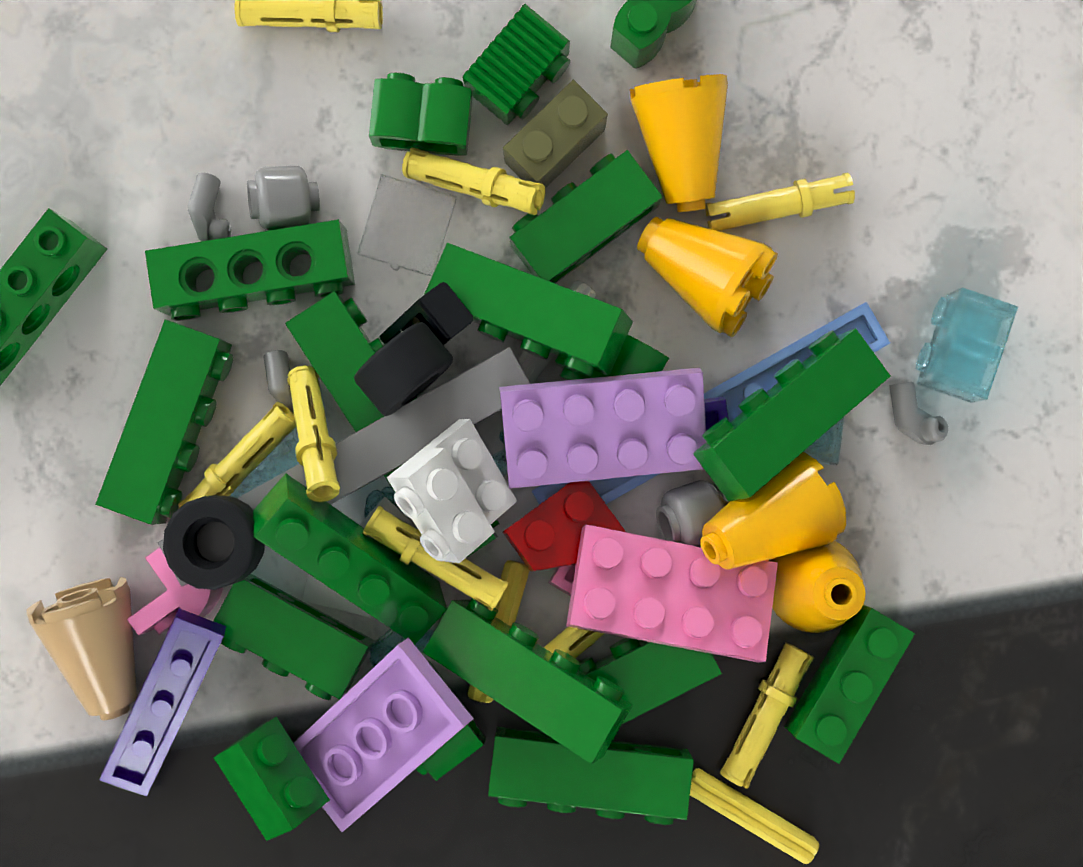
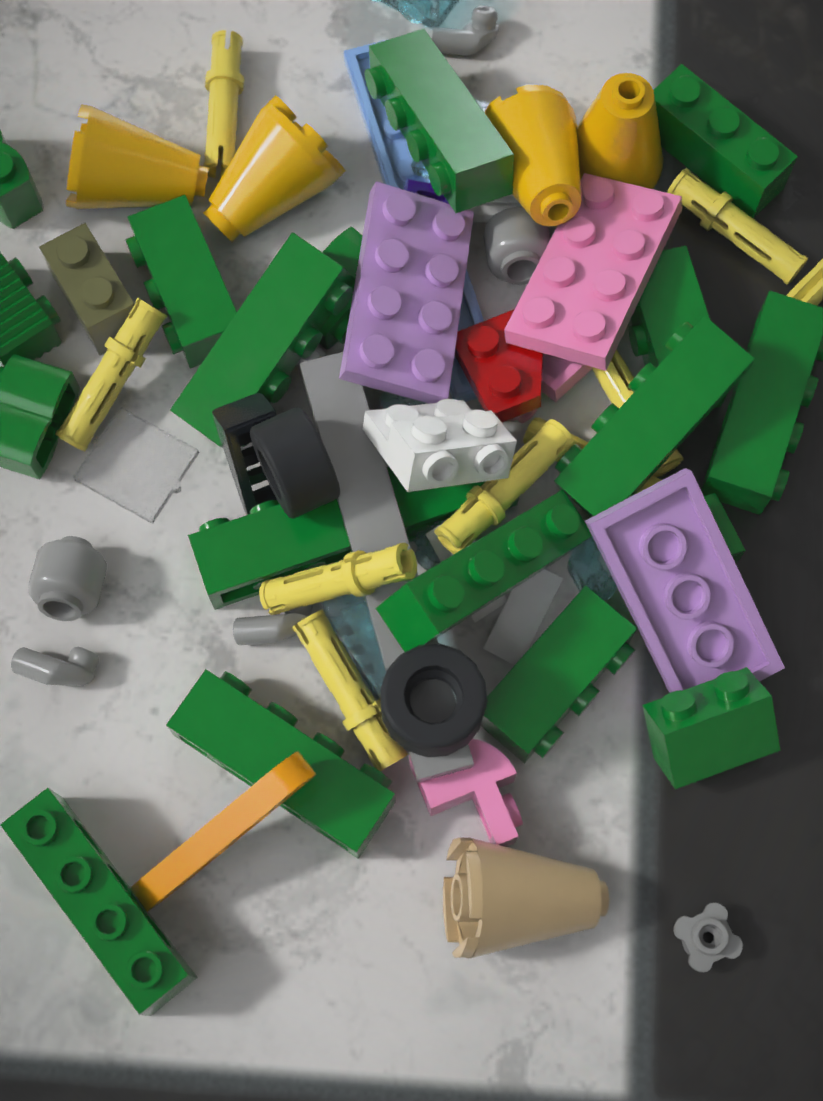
camera: 80 degrees left, 15 degrees down
(87, 392) = (223, 830): none -> light orange beam
(102, 820) = (691, 933): none -> light grey plate
(163, 702) = (602, 829): plate -> none
(176, 268) = (132, 546): green brick -> none

